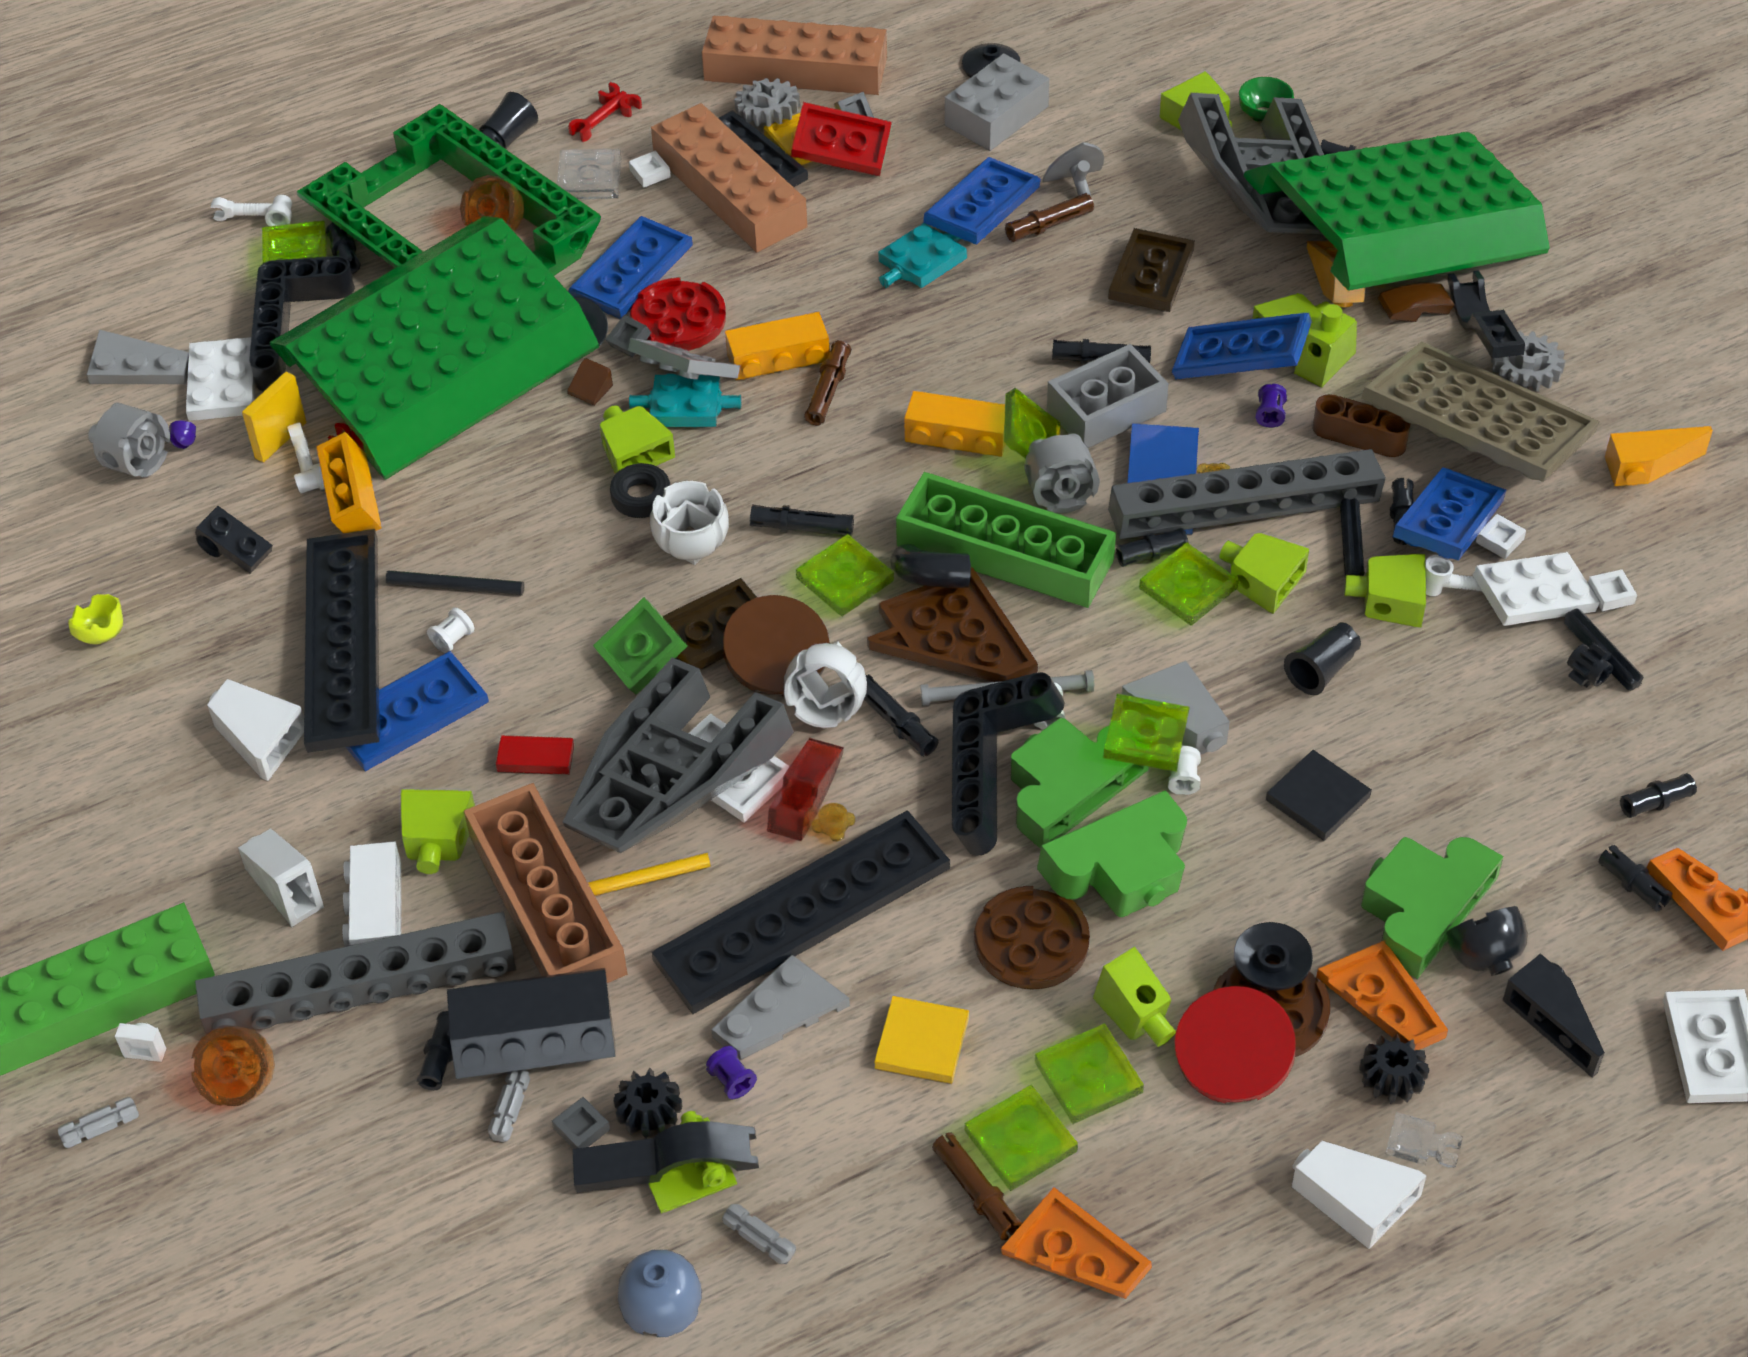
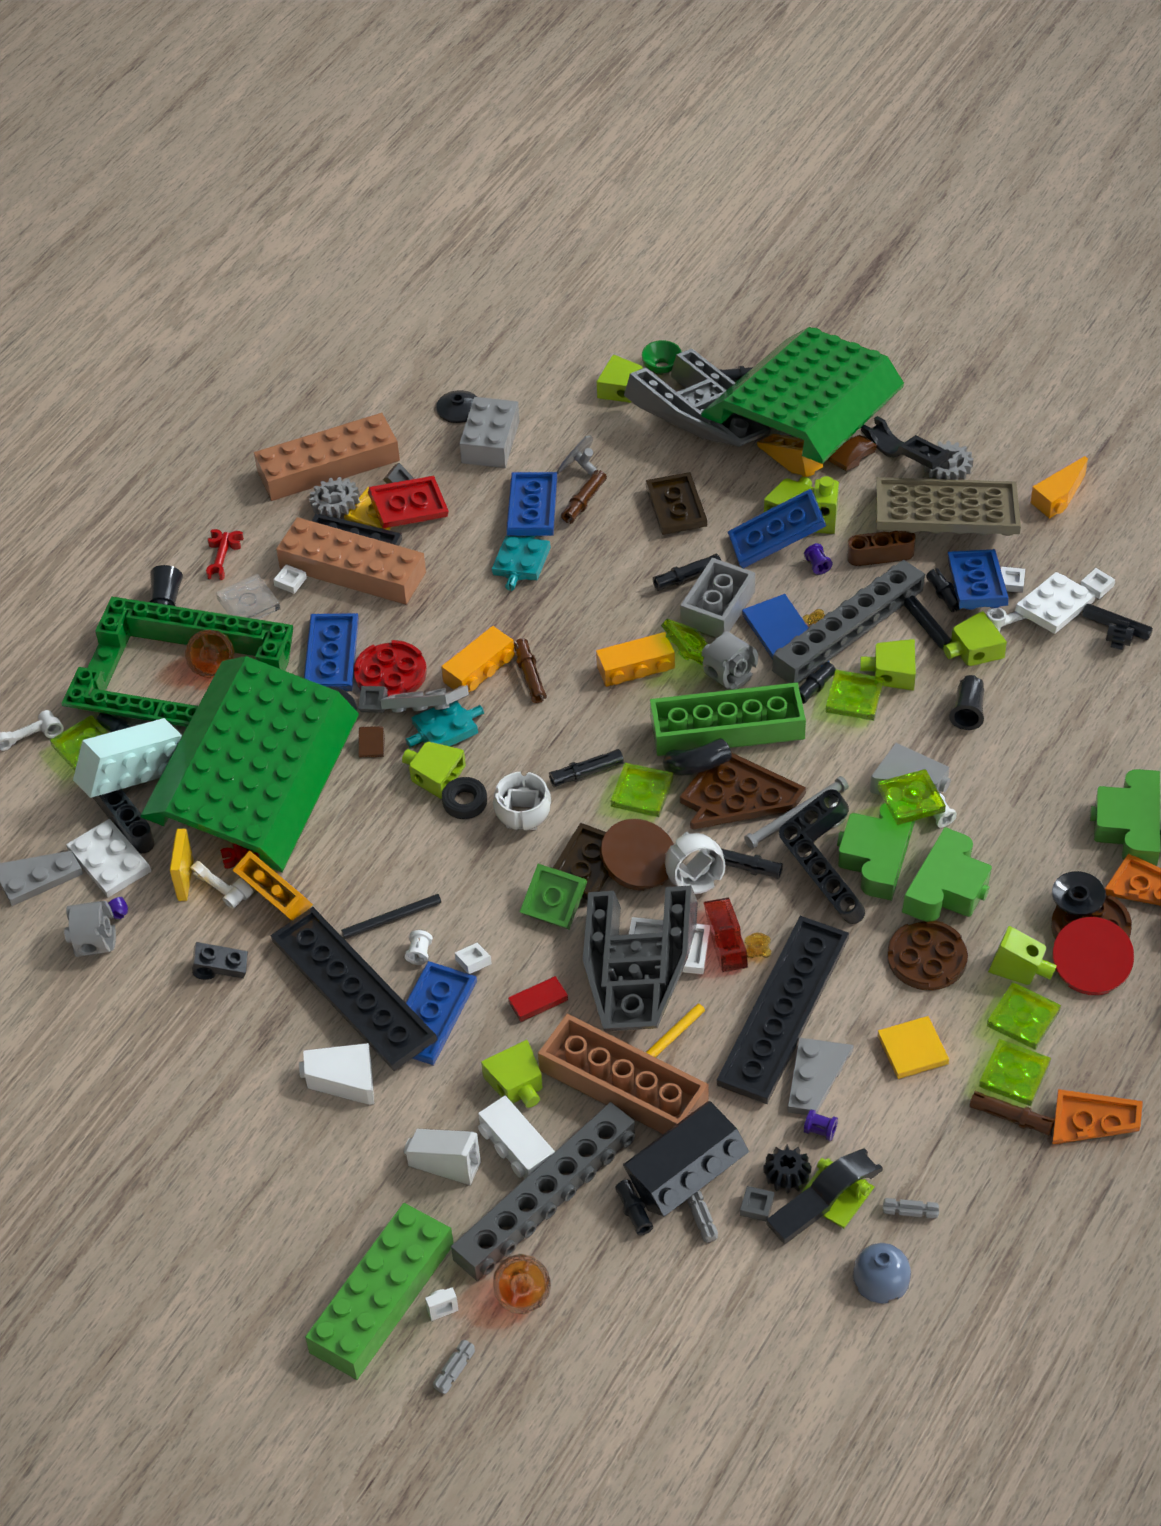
camera: 30 degrees left, 0 degrees up
(98, 621) = (172, 1058): neon yellow hair -> none
(299, 271) = (125, 757): none -> light aqua brick
(498, 672) = (473, 958): none -> white plate
(1318, 795) = (1024, 787): black tile -> none

